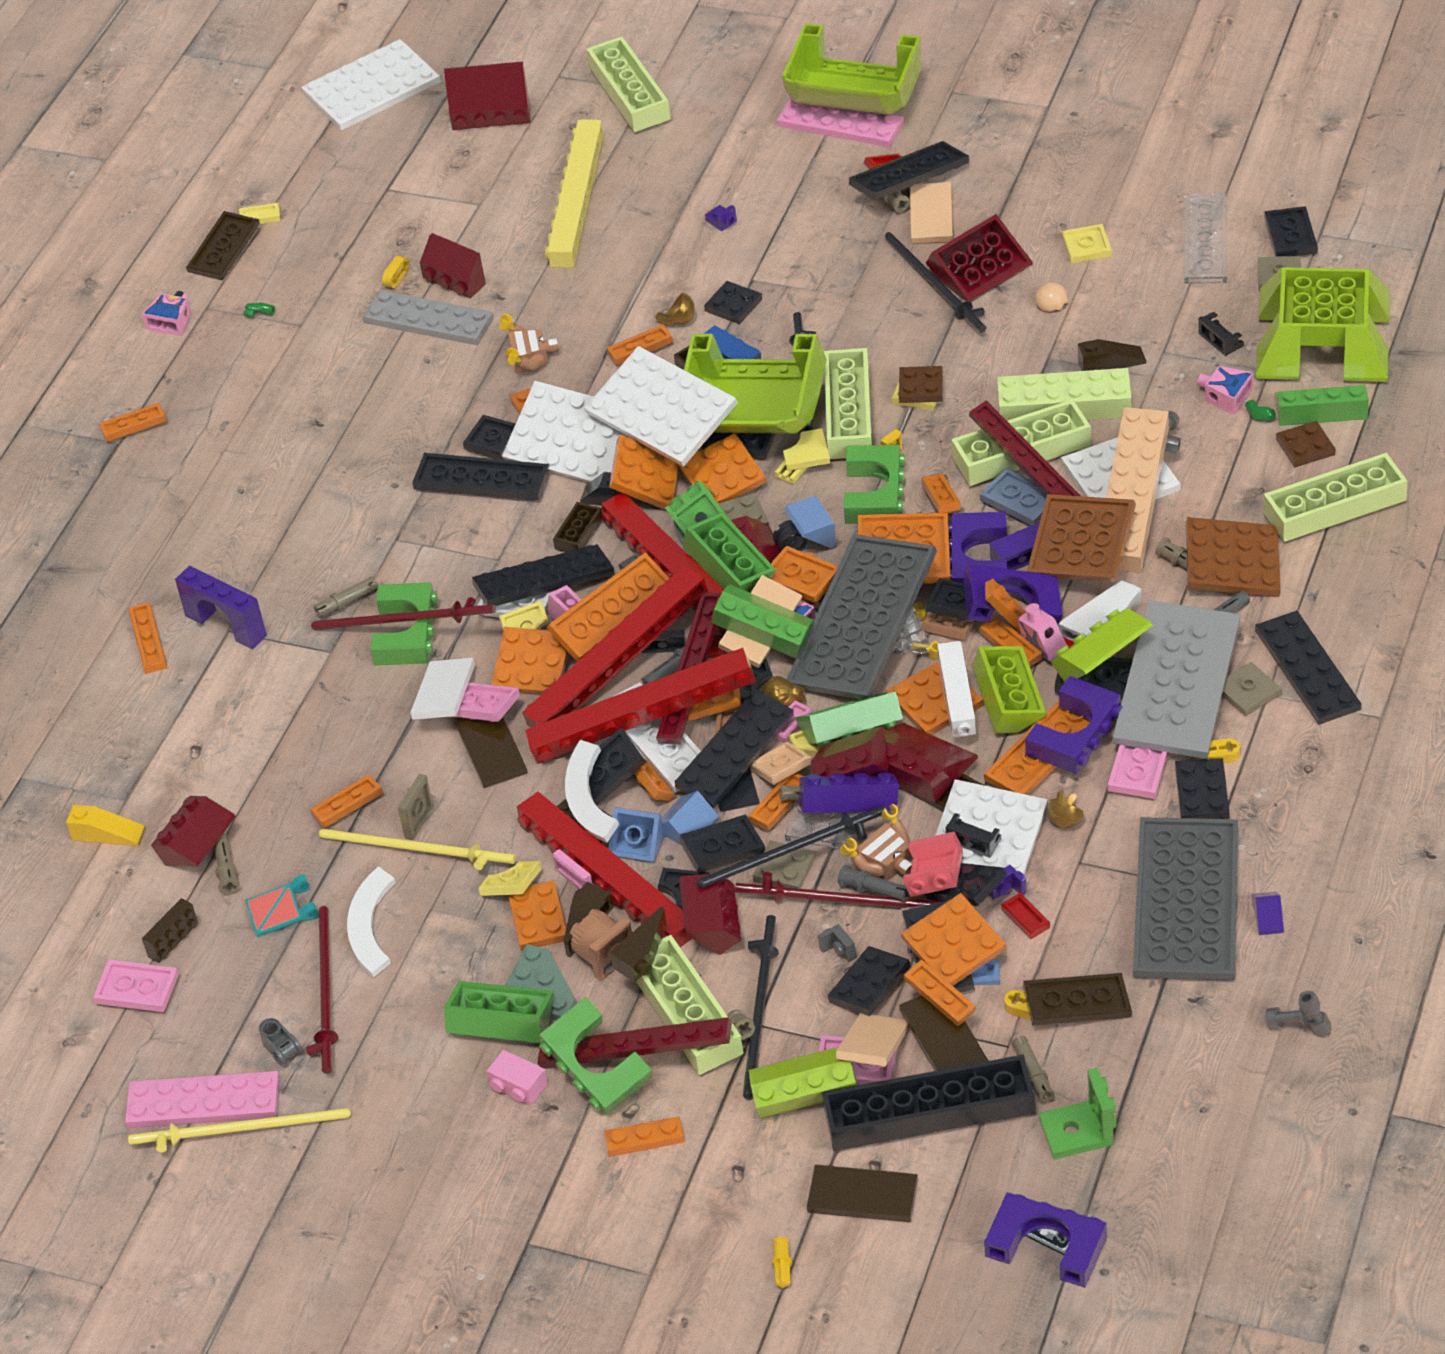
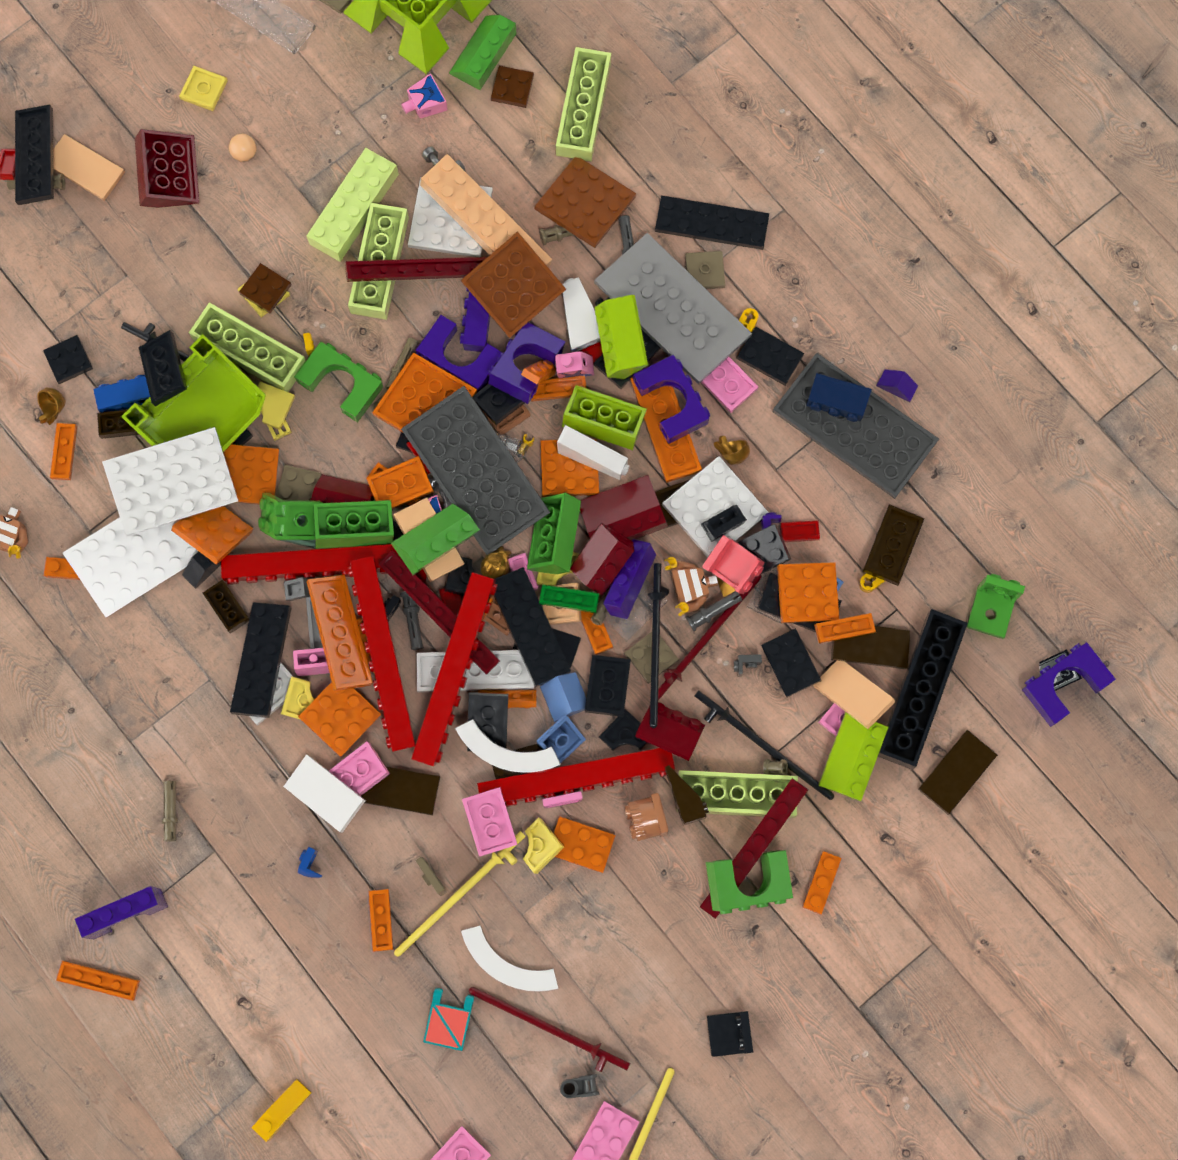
camera: 65 degrees left, 30 degrees up
(170, 930) = (422, 1115): dark brown piece -> none
(192, 832) = (339, 1049): dark red slope -> none
(225, 870) = (388, 1041): dark tan pin -> none
(366, 716) = (307, 859): none -> blue plate
(414, 643) = (215, 762): bright green arch -> none
(421, 1139) = (729, 1034): none -> black bracket
(455, 612) = (264, 744): dark red piece -> none
(481, 476) = (116, 644): black plate -> none
(489, 436) = (79, 613): black plate -> none
(498, 1011) = (658, 920): bright green slope -> none
(503, 817) = (489, 821): none -> bright pink plate
(517, 1077) = (720, 940): bright pink brick -> none
(539, 971) = (645, 880): sand green plate -> none
(583, 901) = (605, 811): dark brown slope -> none
(765, 353) = (162, 368): none -> black tile
(781, 1261) = (981, 855): yellow axle -> none
(786, 756) = (569, 598): none -> green tile
(789, 536) = (352, 468): black wheel -> none
(812, 521) = (353, 446): medium blue slope -> none
(941, 493) = (387, 344): orange plate -> none
(963, 309) = (208, 211): black piece -> none
(1016, 496) = (424, 297): sand blue plate -> none
(1037, 1075) = (926, 606): dark tan pin -> none
(1106, 354) = (333, 150): dark brown slope -> none
(1195, 852) = (838, 397): none -> dark blue slope
(1218, 335) = (368, 68): black hinge -> none
(1260, 413) = (461, 95): green arm -> none
(1307, 1013) = (1008, 415): flat silver bar -> none

